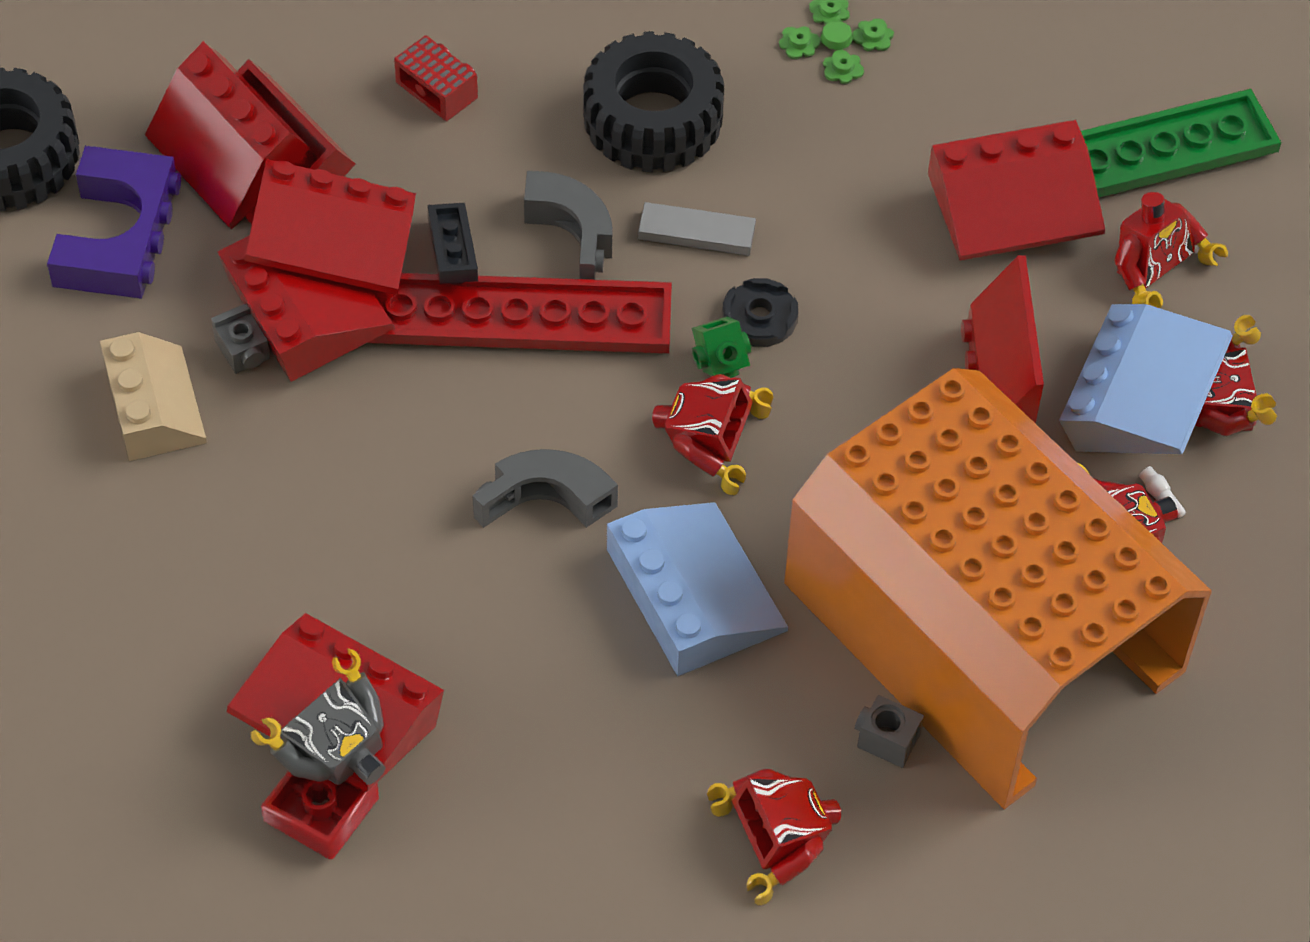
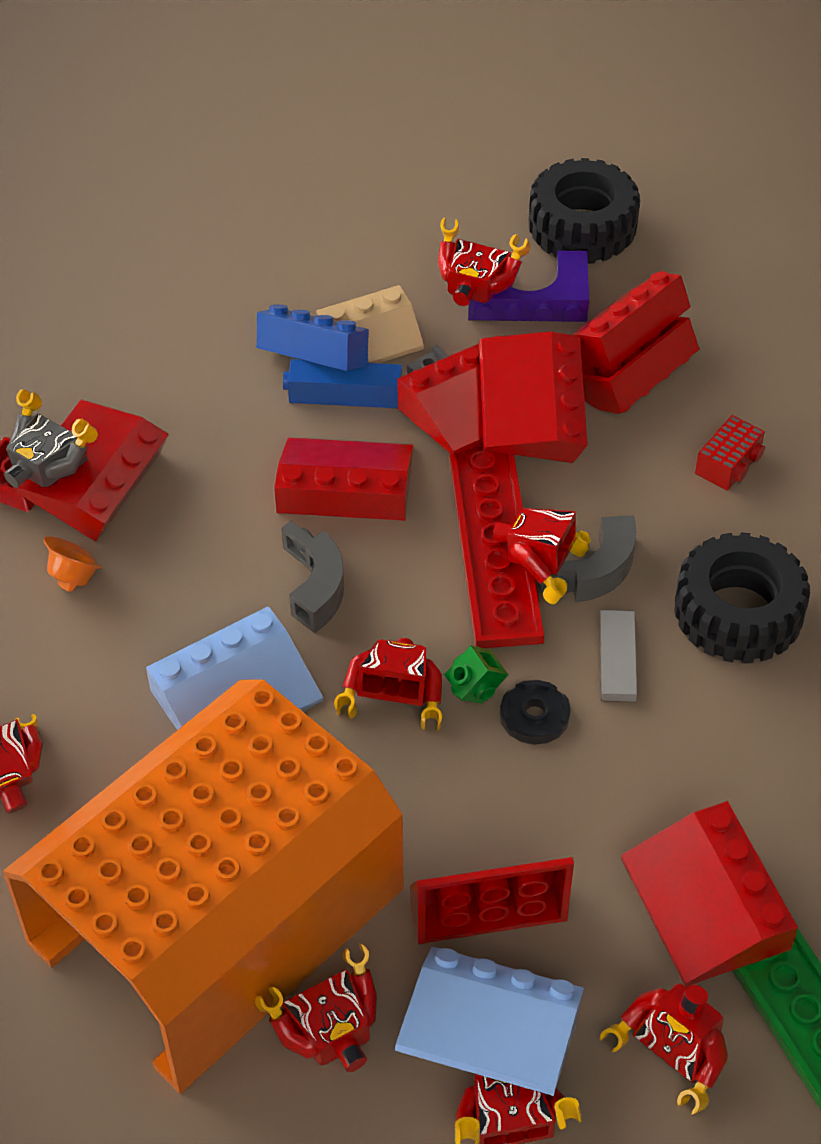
camera: 85 degrees right, 5 degrees down
(107, 250) = (476, 269): none -> red torso
(178, 440) = (312, 337): none -> blue brick
(239, 430) = (325, 385): none -> blue brick
(389, 446) = (343, 479): none -> red slope
(452, 243) = (549, 480): black plate -> none
(485, 743) = (69, 563): none -> orange piece
(562, 254) = (541, 544): none -> red torso
(1159, 487) = (382, 1059): white piece -> none

